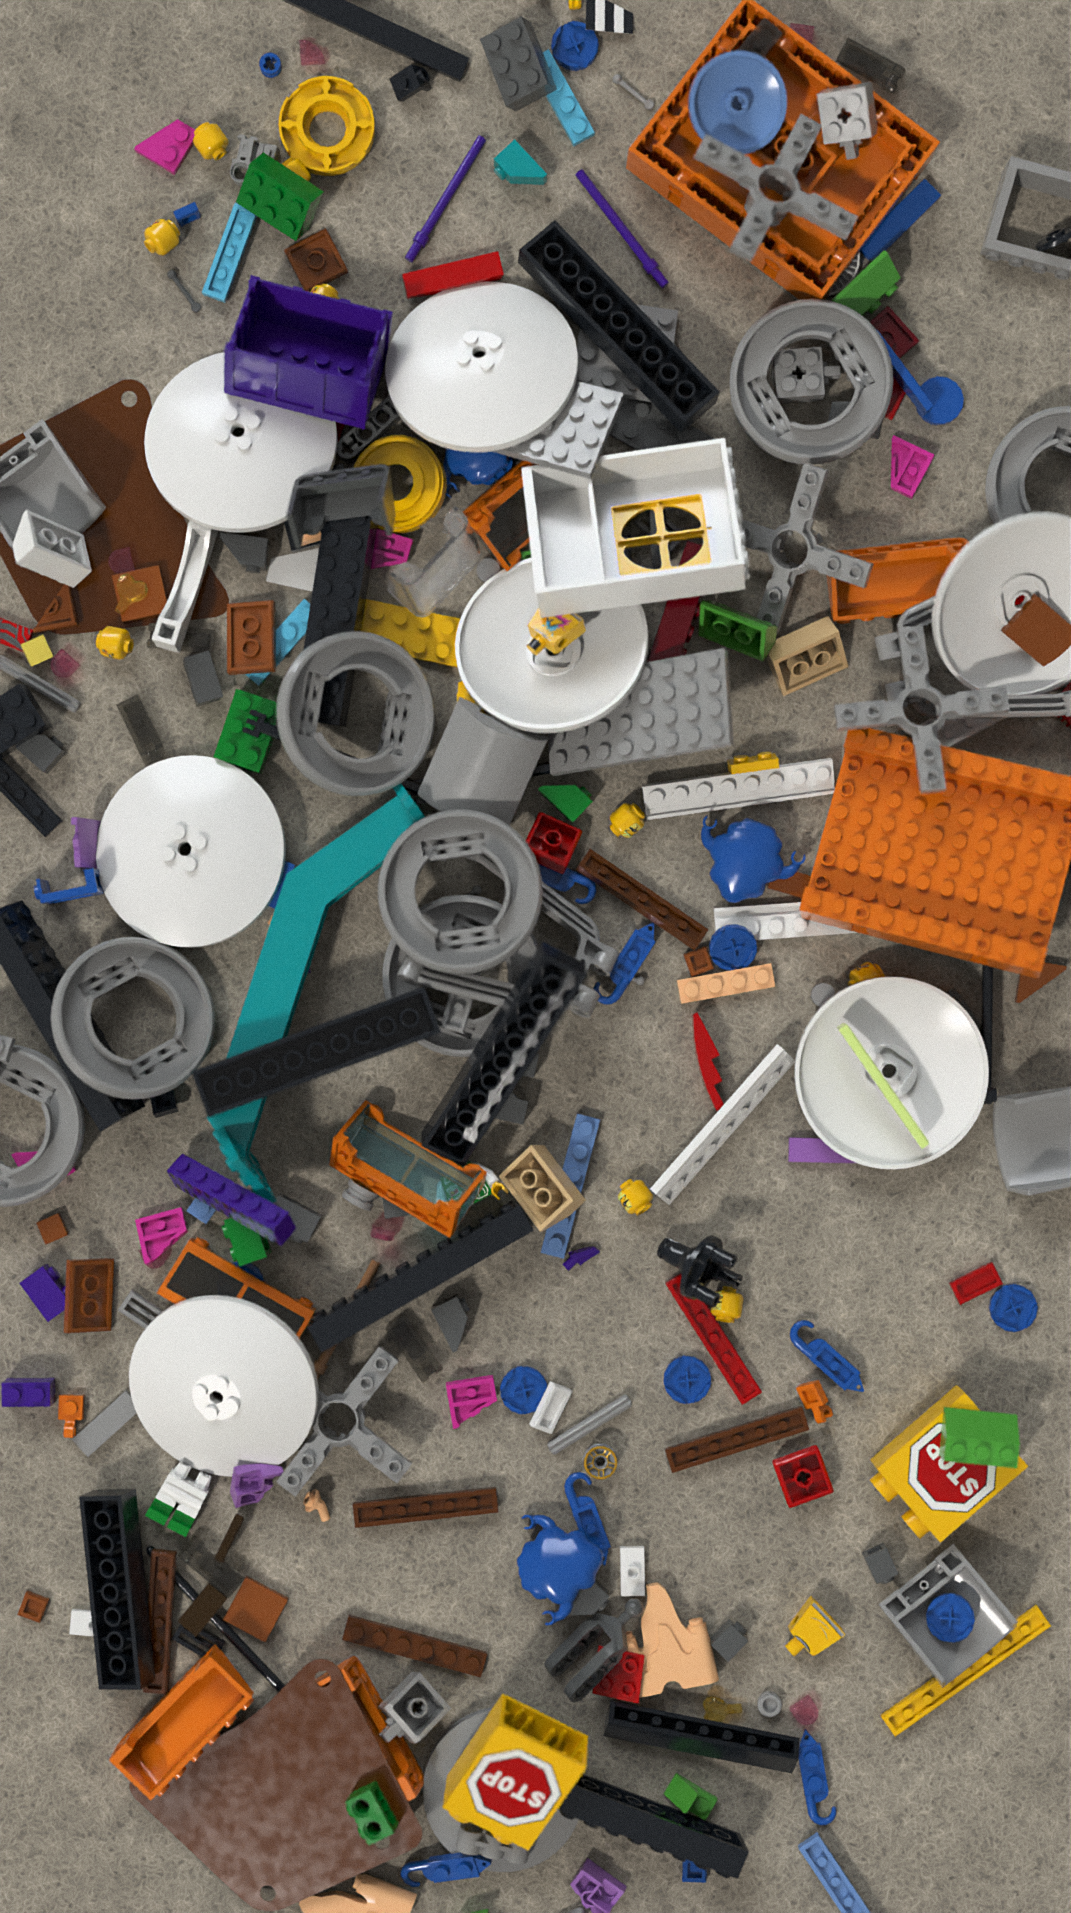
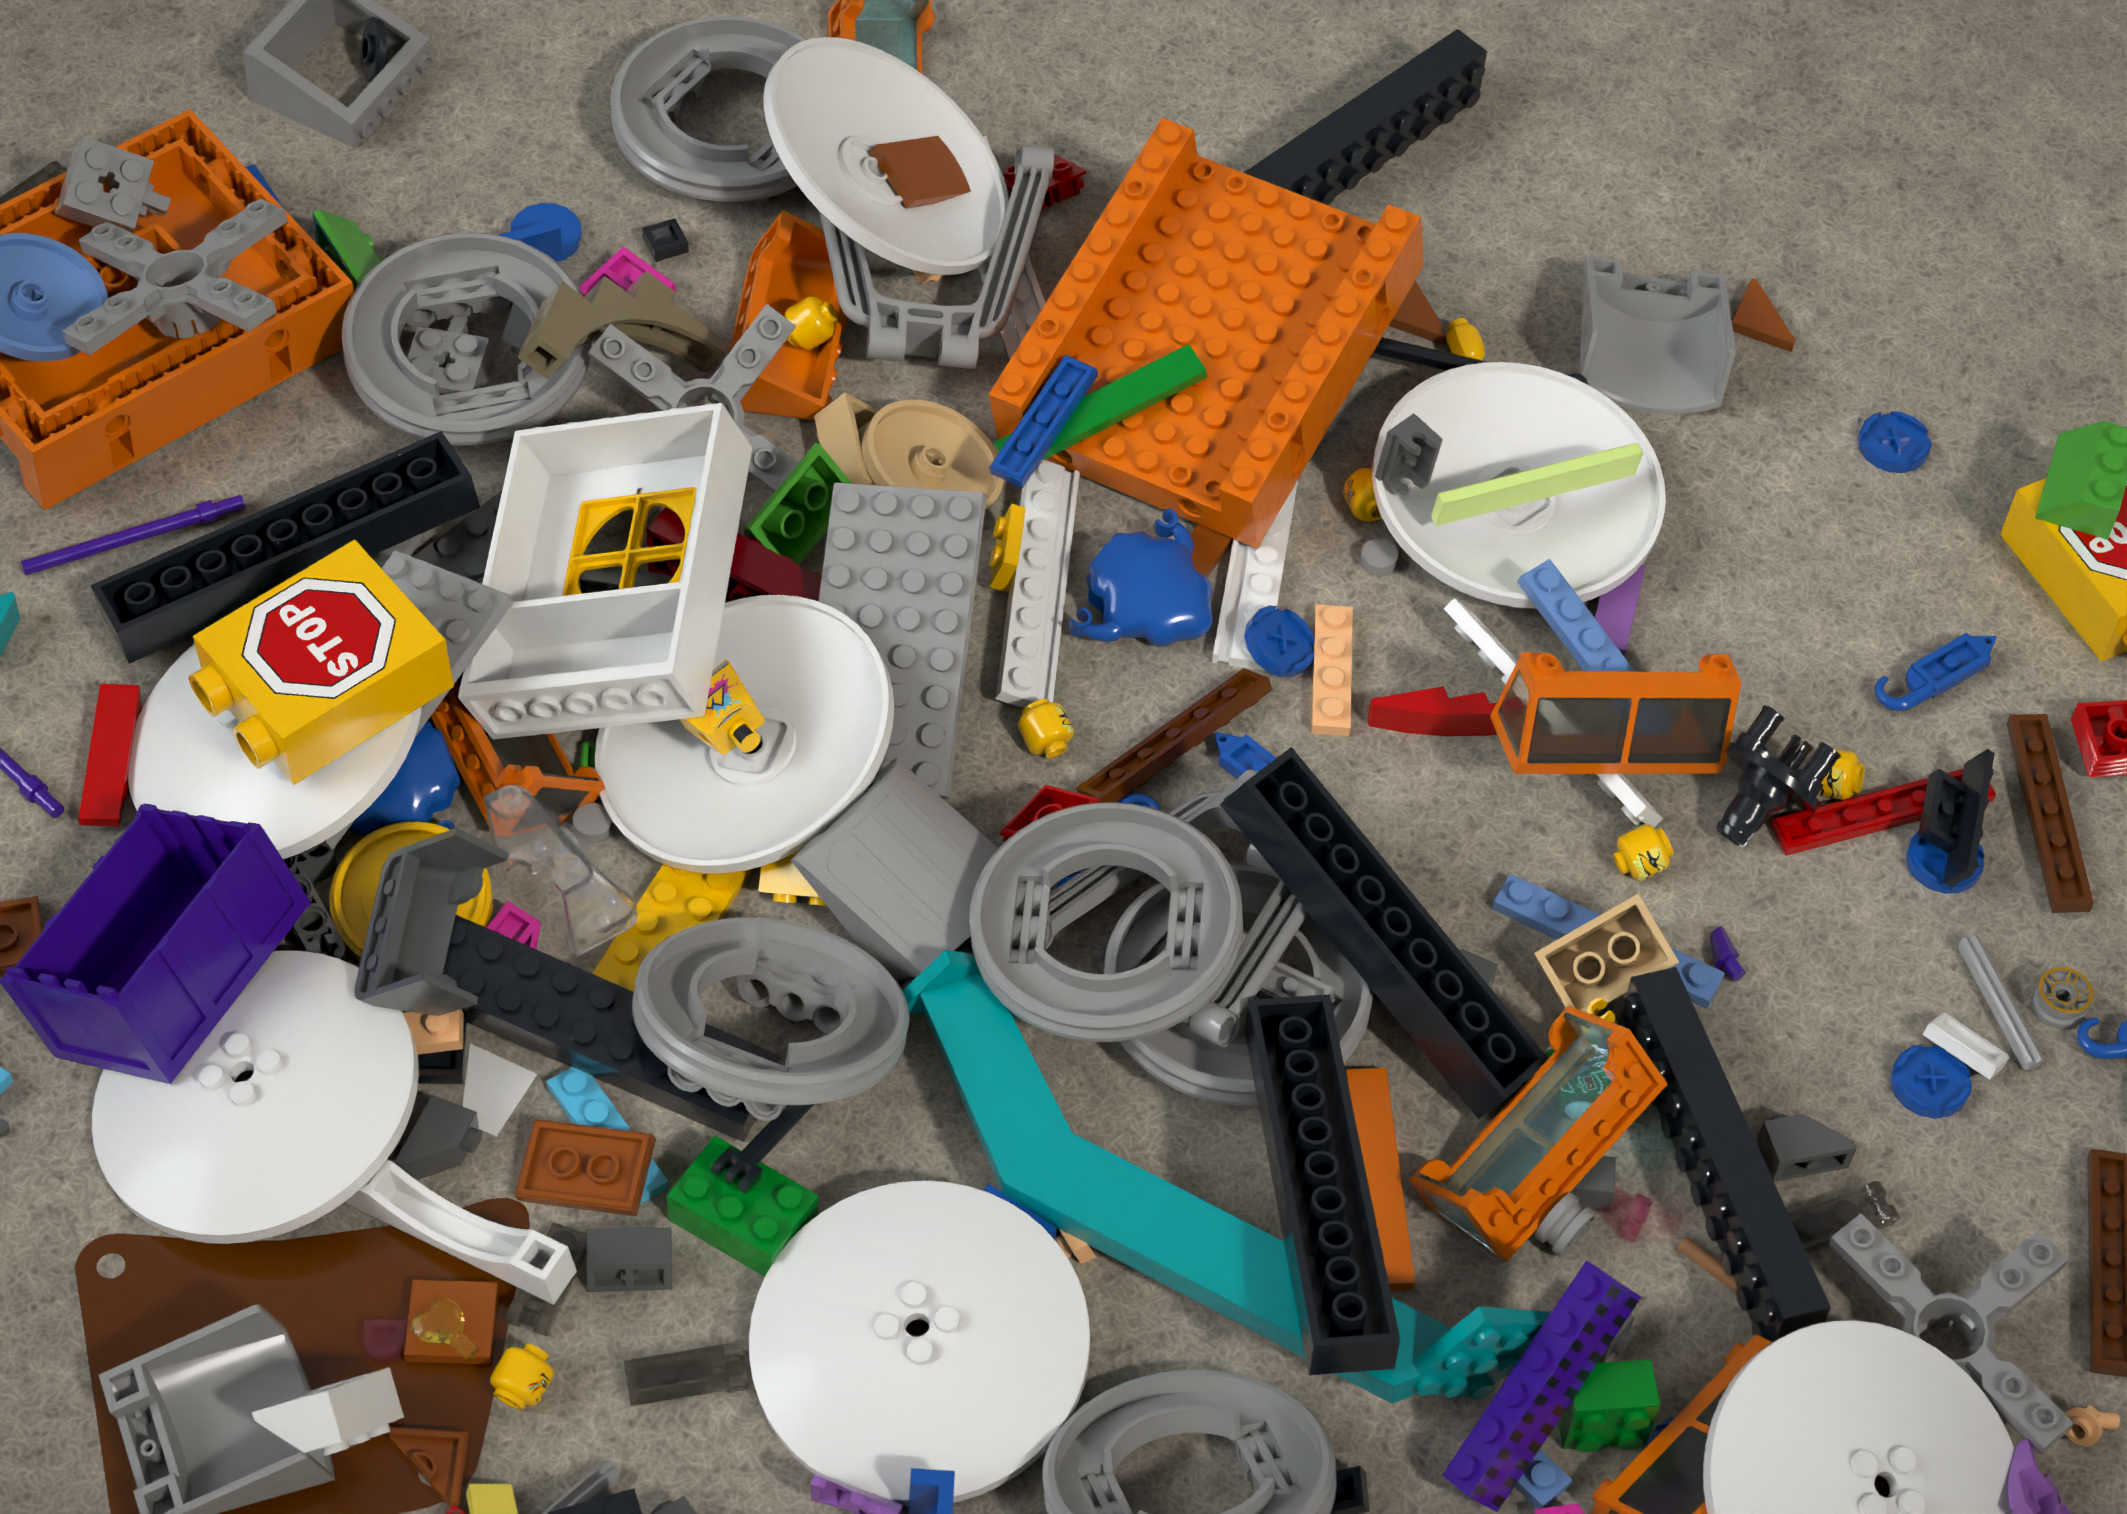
camera: 80 degrees left, 35 degrees down
(63, 664) = (530, 1473): clear pink tile -> none
(370, 1082) = (1379, 1149): none -> orange tile
(469, 1396) = (1933, 1156): dark pink wing -> none
(494, 380) = (320, 663): none -> yellow brick
(567, 799) = (994, 794): green slope -> none
(678, 1128) = (1616, 718): none -> windscreen
(698, 961) = (1289, 696): dark orange tile -> none
(711, 1382) = (1955, 815): none -> black bracket
(768, 1147) = (1571, 619): none -> medium blue plate
(802, 698) = (929, 449): none -> tan dish
(815, 1399) = (1997, 698): orange plate -> none
(823, 444) = (640, 312): none -> dark tan arch
(842, 763) = (1043, 421): none -> blue tile
(863, 797) = (1127, 397): none -> green tile
(871, 999) = (1408, 453): none -> dark grey hinge
(900, 592) = (813, 322): none -> yellow head
(918, 687) = (1009, 284): light grey piece -> none
(953, 479) = (665, 240): none -> black plate
(975, 1283) = (1851, 476): red tile -> none
(1011, 1017) = (1464, 339): none -> yellow plant

